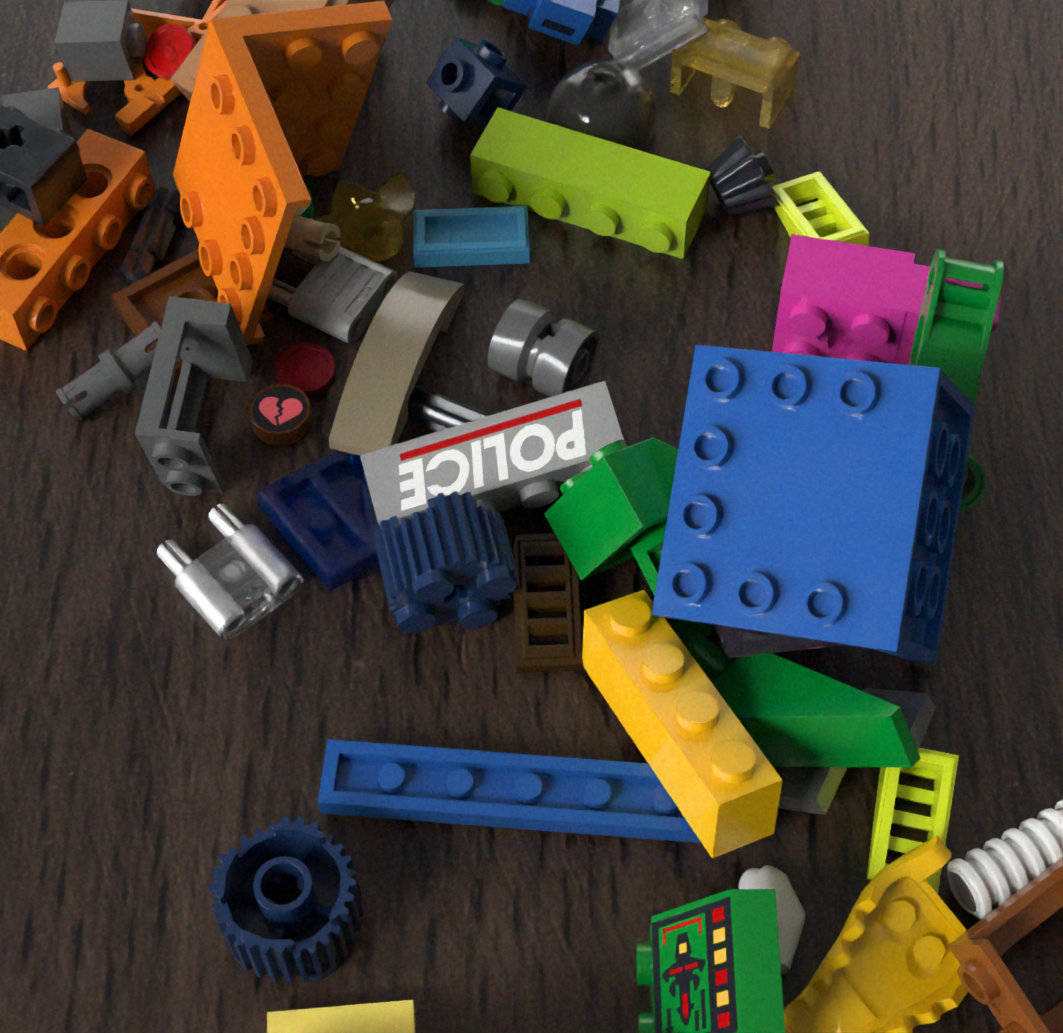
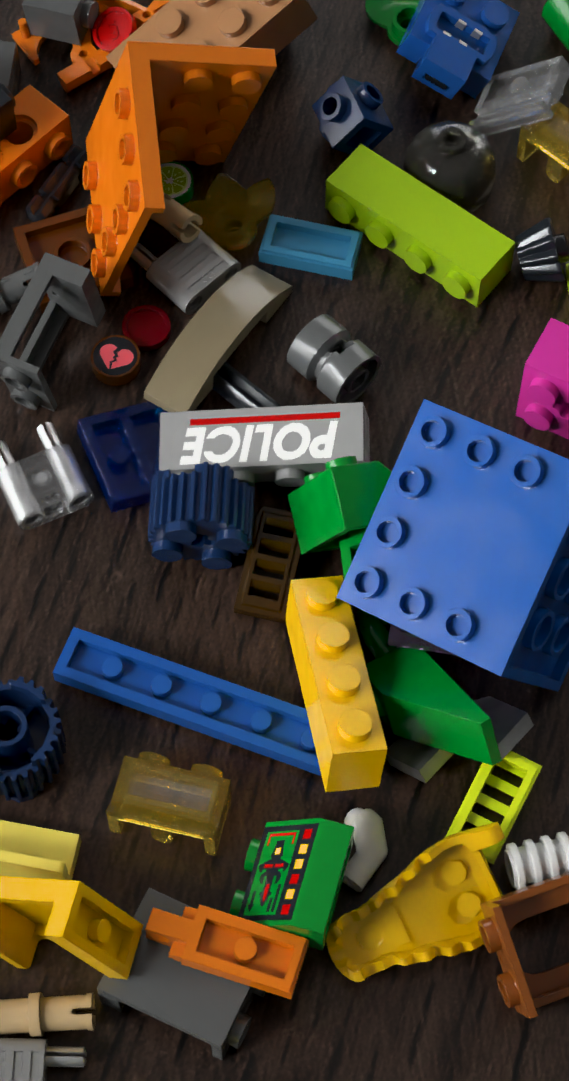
camera: 15 degrees right, 5 degrees up
(516, 921) = (171, 799): none -> clear yellow window

